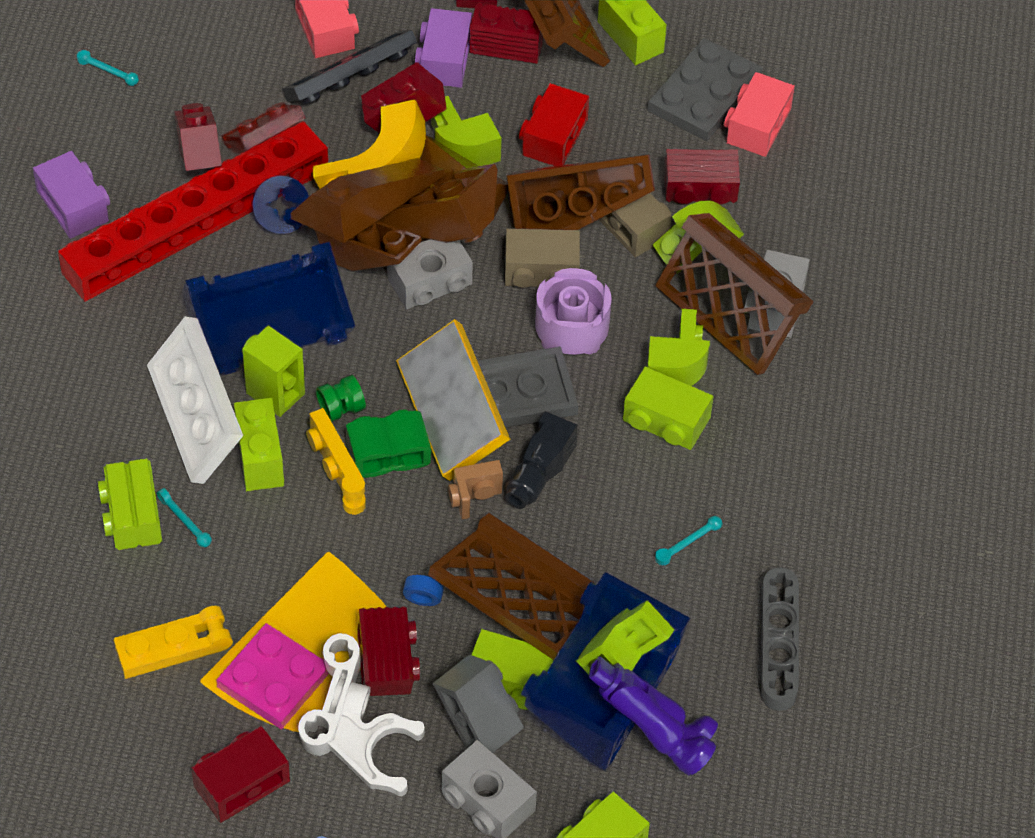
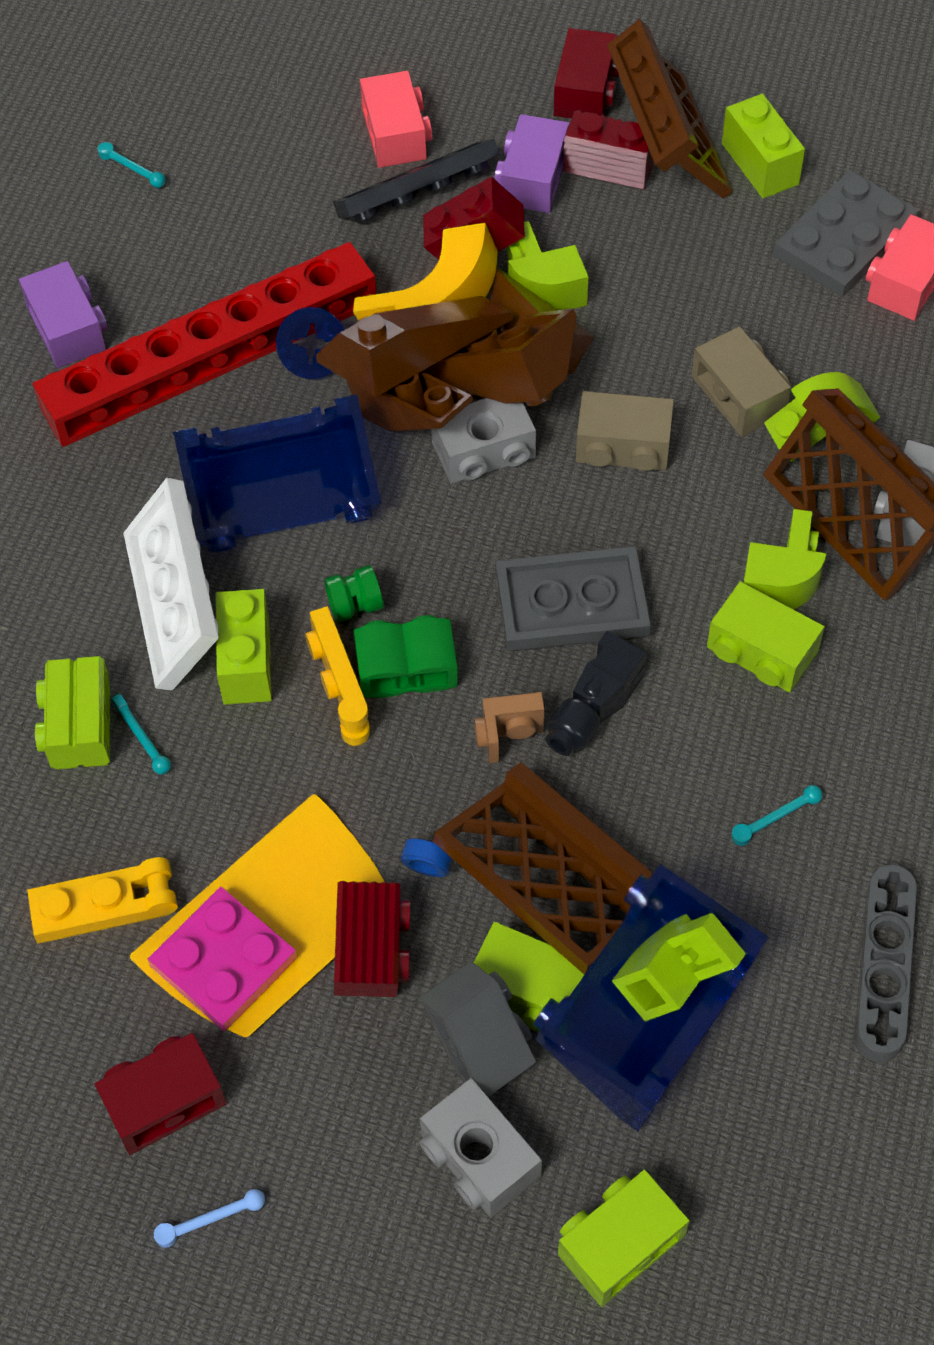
camera: 10 degrees right, 5 degrees up
(197, 137) = (219, 253): dark red brick -> none
(263, 126) = (294, 249): clear red plate -> none
(274, 369) = (272, 552): lime brick -> none
(343, 715) = (301, 1028): white piece -> none
(453, 399) = (492, 607): flat silver tile -> none
(554, 125) = (656, 265): red brick -> none
(573, 311) = (655, 503): lavender brick -> none
(577, 192) = (675, 352): reddish brown wedge -> none
(657, 716) = (713, 1069): dark purple piece -> none
(702, 175) = (833, 339): dark red brick -> none

